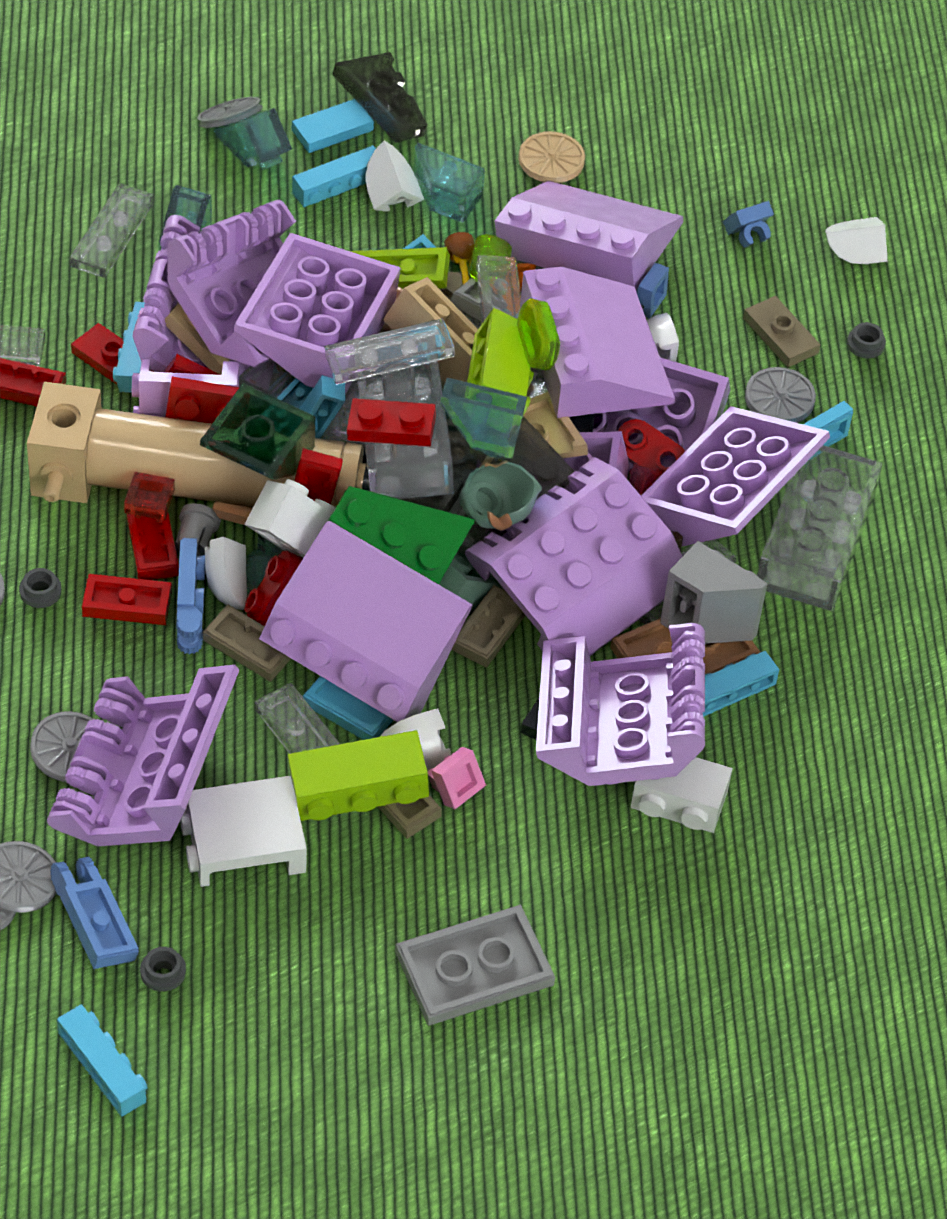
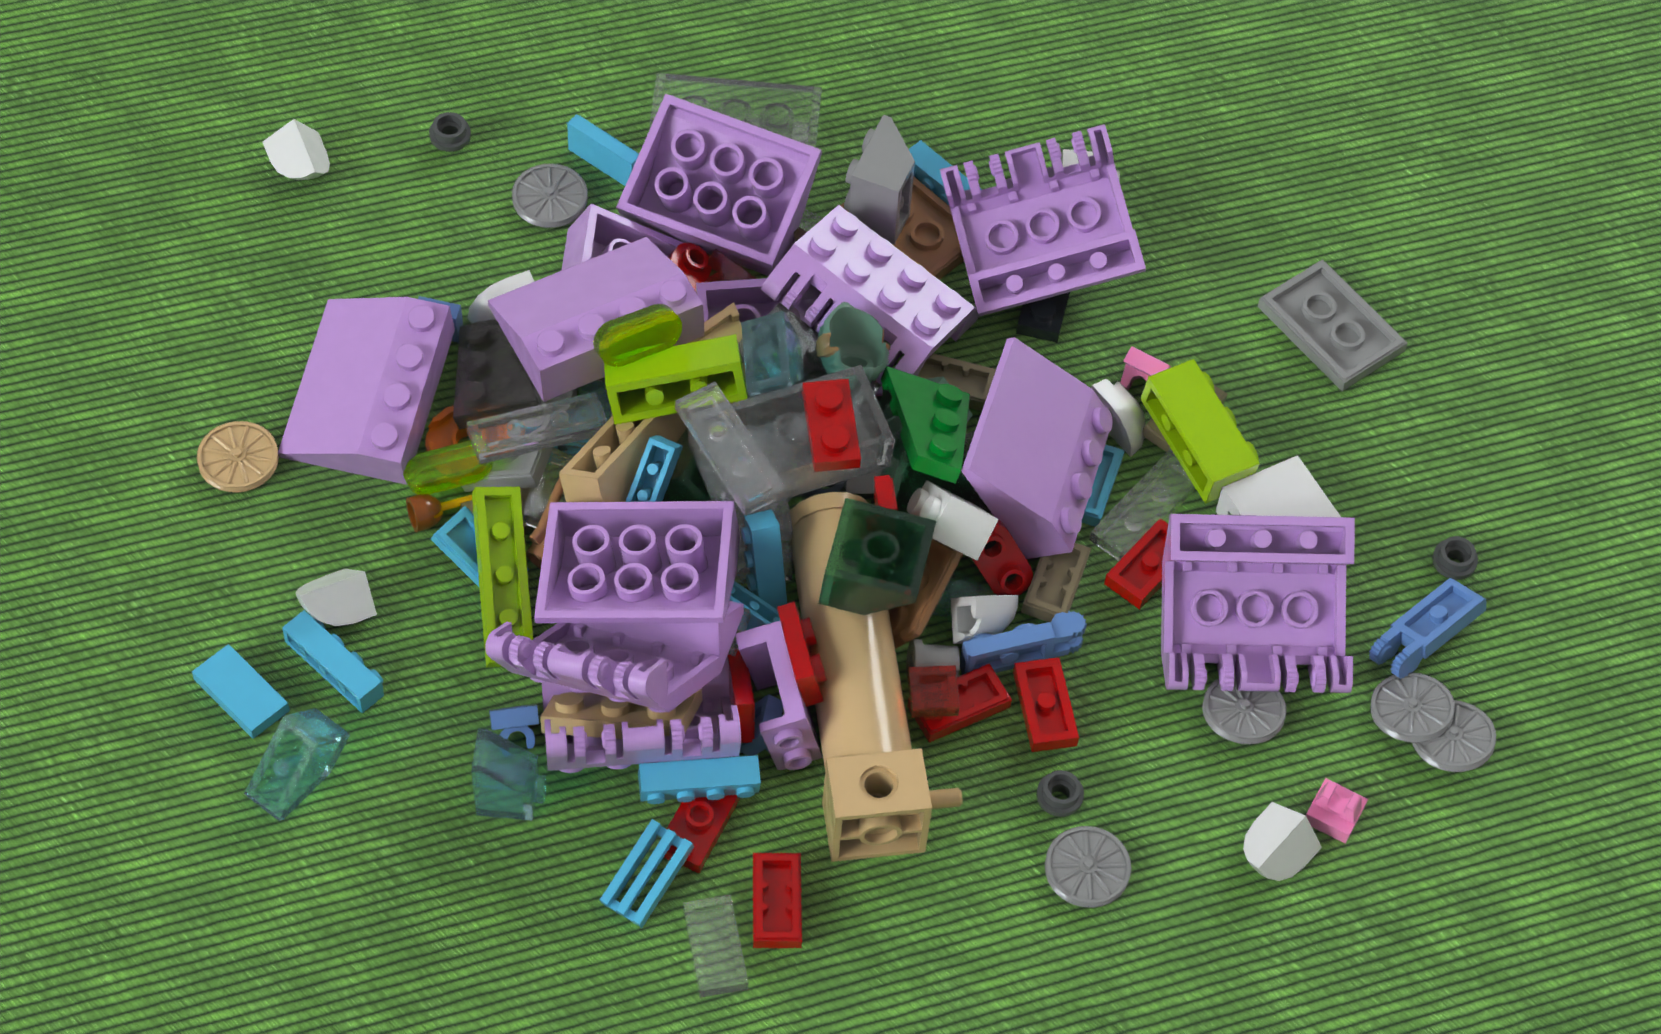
camera: 105 degrees left, 5 degrees up
(83, 308) = (630, 865): none -> medium azure tile
(101, 1059) = (1570, 580): medium azure piece -> none
(111, 230) = (491, 882): clear tile -> none
(229, 112) = (260, 796): light grey wheel -> none
(248, 722) = (1140, 569): none -> red plate
(382, 95) = (172, 653): clear smoke wing -> none
(447, 182) = (323, 541): clear light blue slope -> none
(750, 219) = (301, 250): medium blue tile -> none
(781, 331) = (454, 207): dark tan plate -> none

